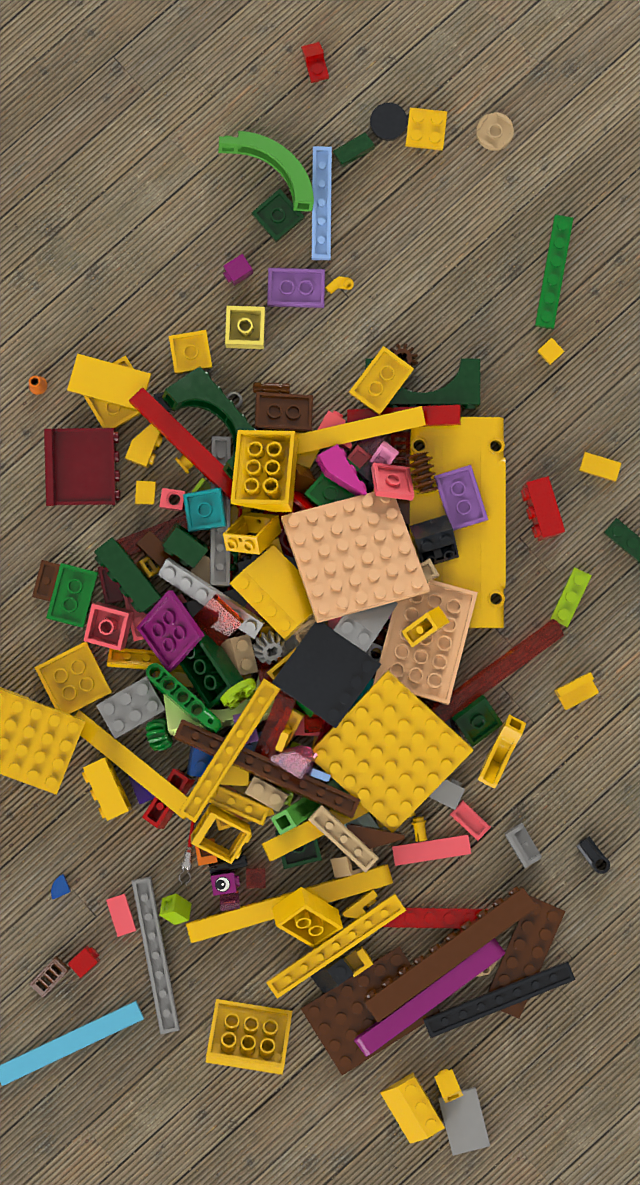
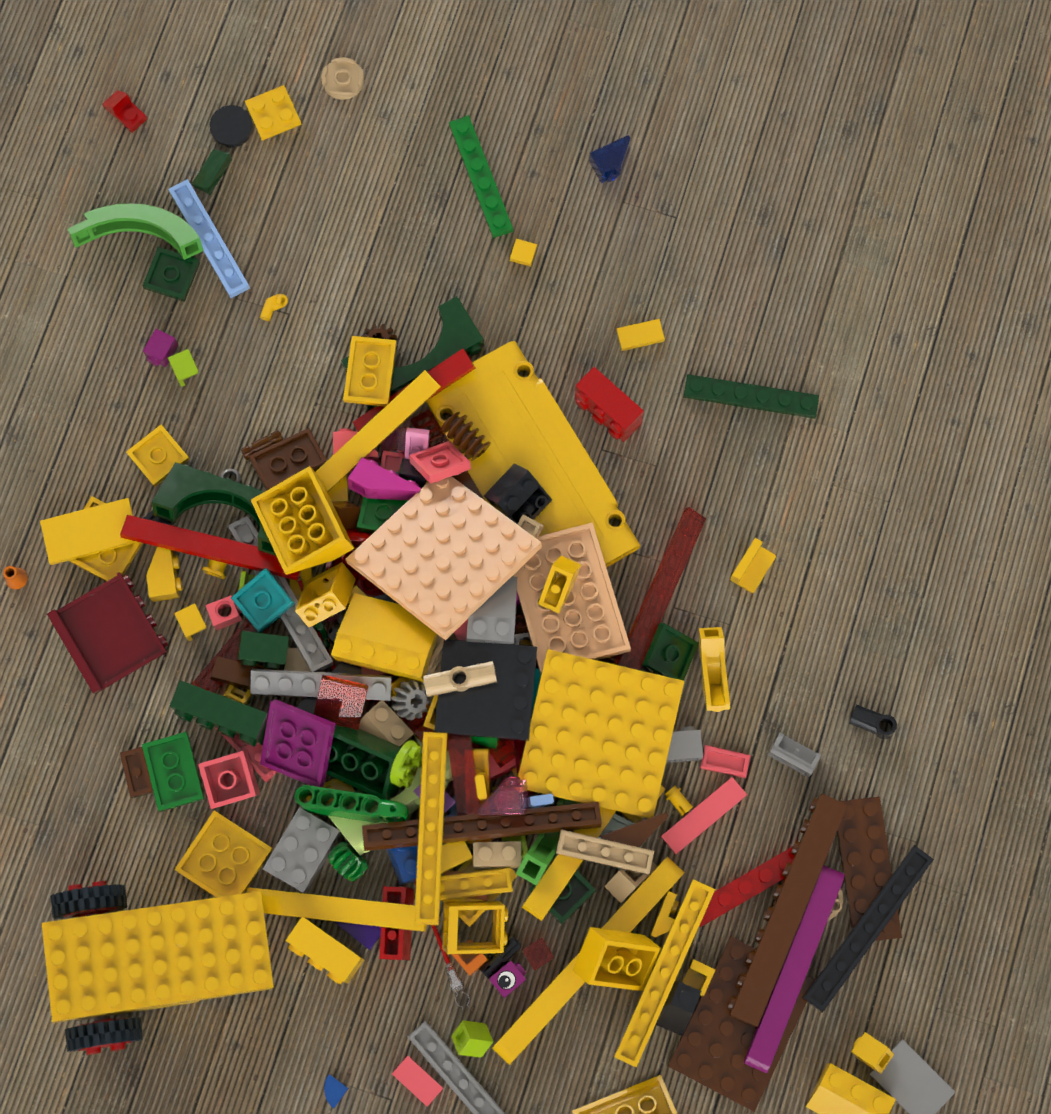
camera: 30 degrees left, 10 degrees down
(110, 589) = (210, 741): dark red tile -> none
(134, 659) = (277, 799): yellow tile -> none
(230, 901) = (524, 995): clear pink plate -> none
(245, 327) = (200, 398): light yellow brick -> none
(247, 294) = (183, 366): none -> lime panel
(296, 287) = (230, 333): medium lavender tile -> none
(299, 652) = (475, 676): none -> tan piece
(461, 497) = (519, 439): medium lavender tile -> none
(570, 597) = (689, 477): lime plate -> none

